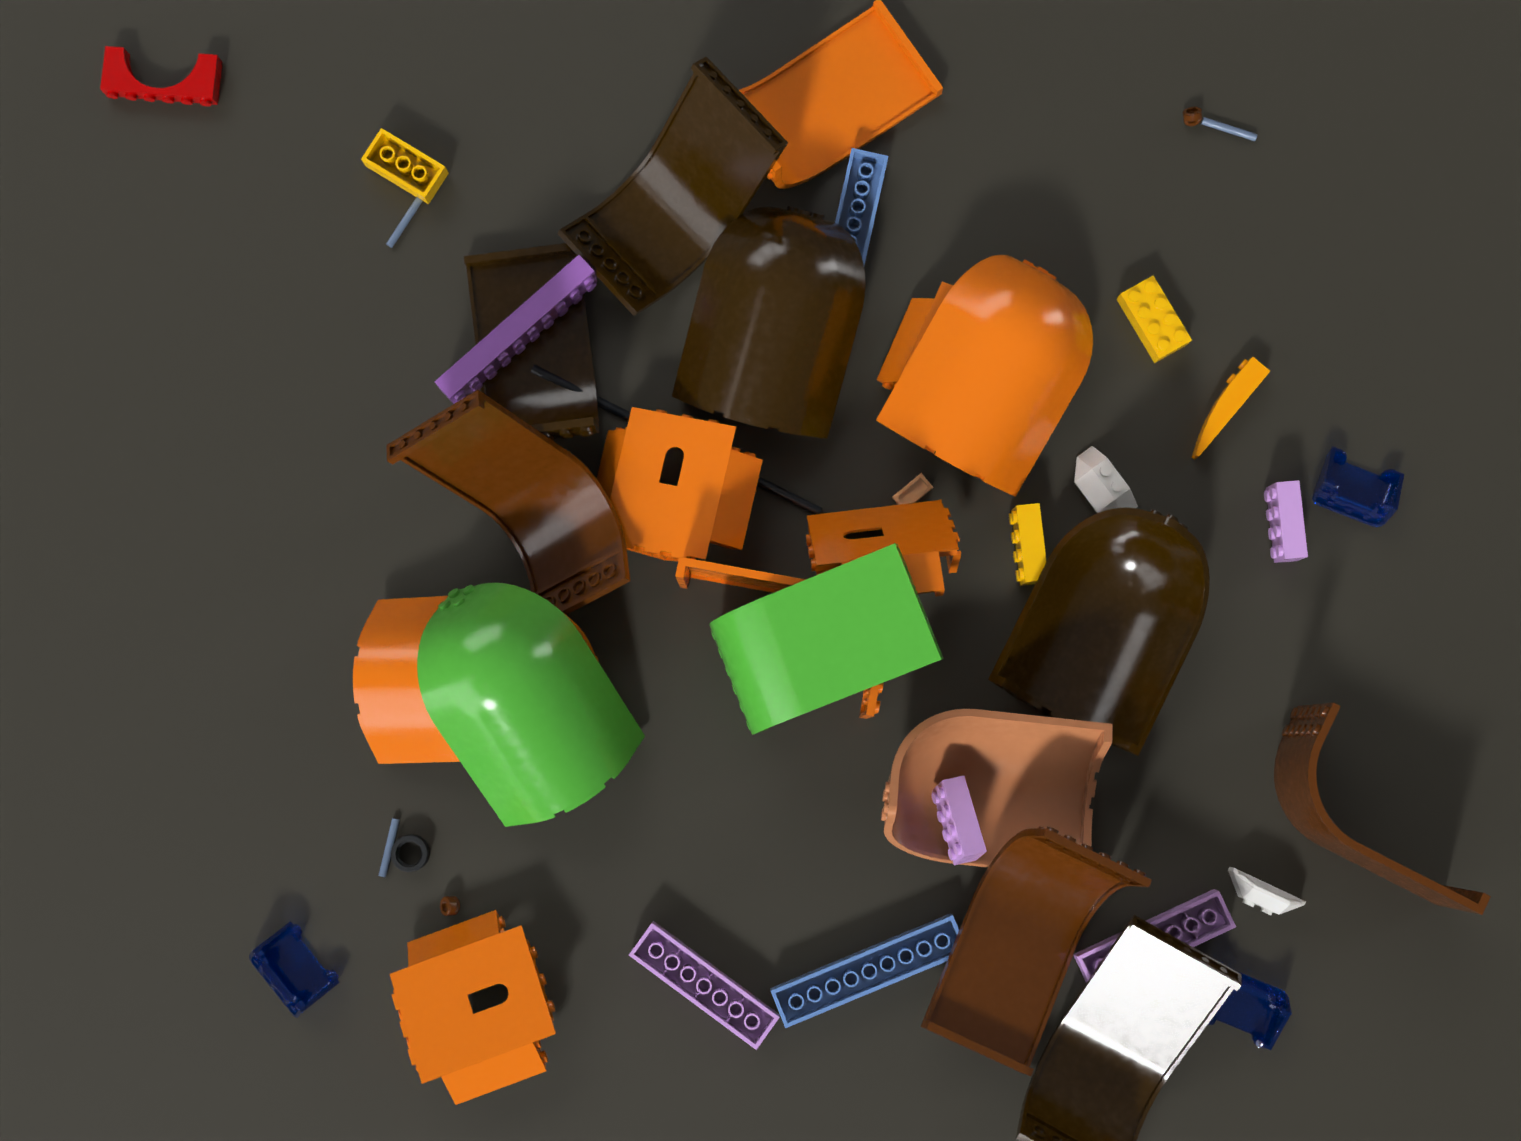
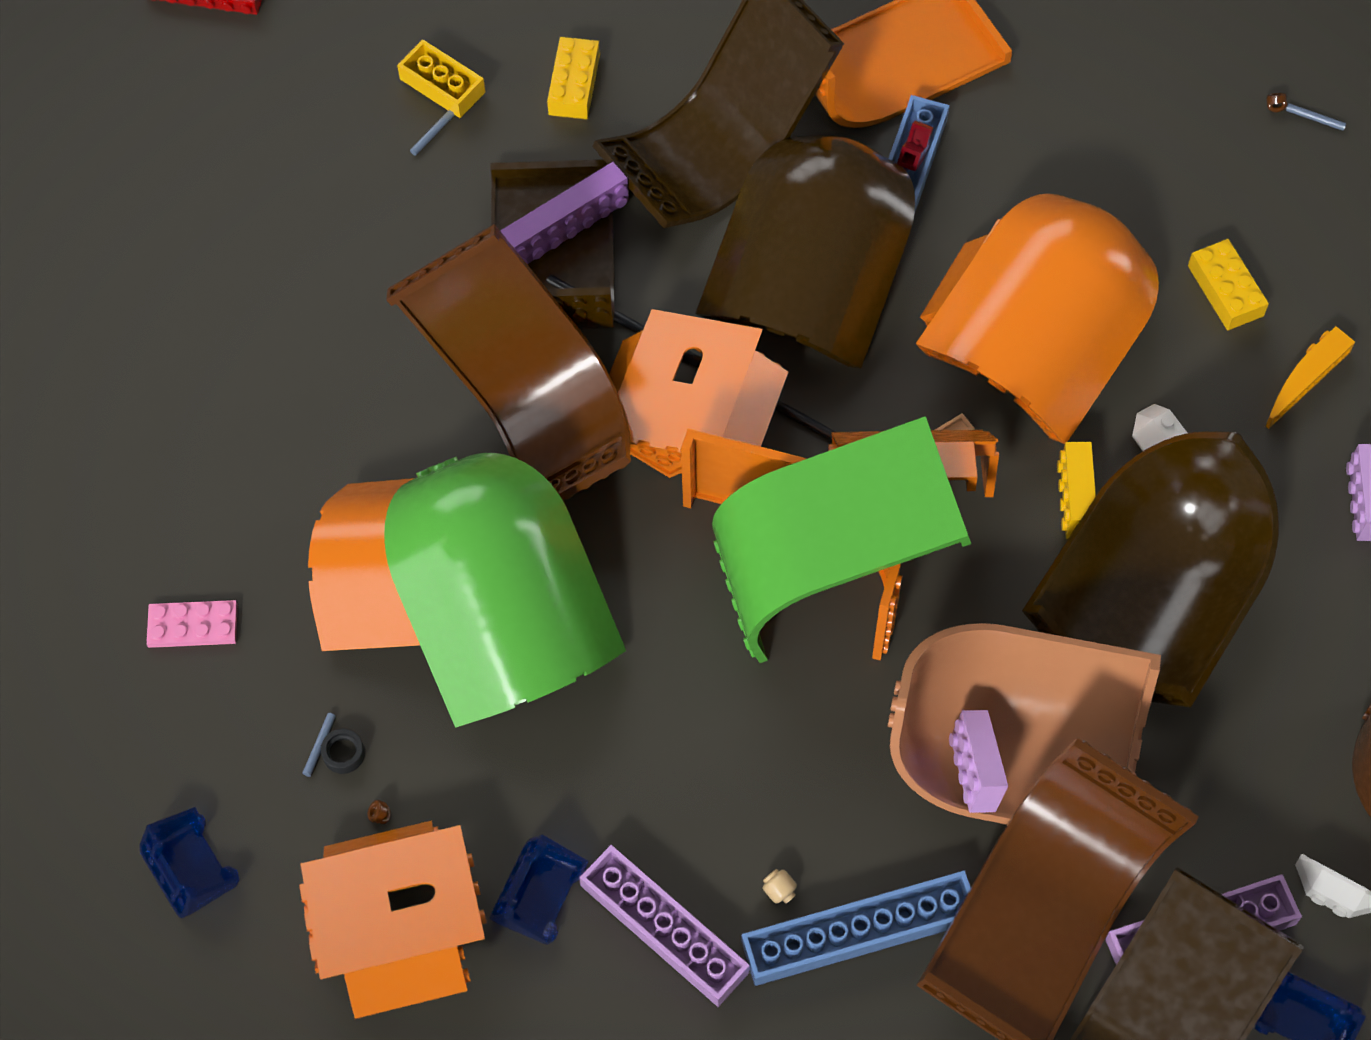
camera: 10 degrees right, 20 degrees down
(259, 745) = (192, 623): none -> bright pink plate
(530, 152) = (573, 78): none -> yellow brick
(593, 964) = (538, 889): none -> clear blue windscreen
(798, 938) = (779, 886): none -> tan head
(860, 210) = (916, 147): none -> dark red brick

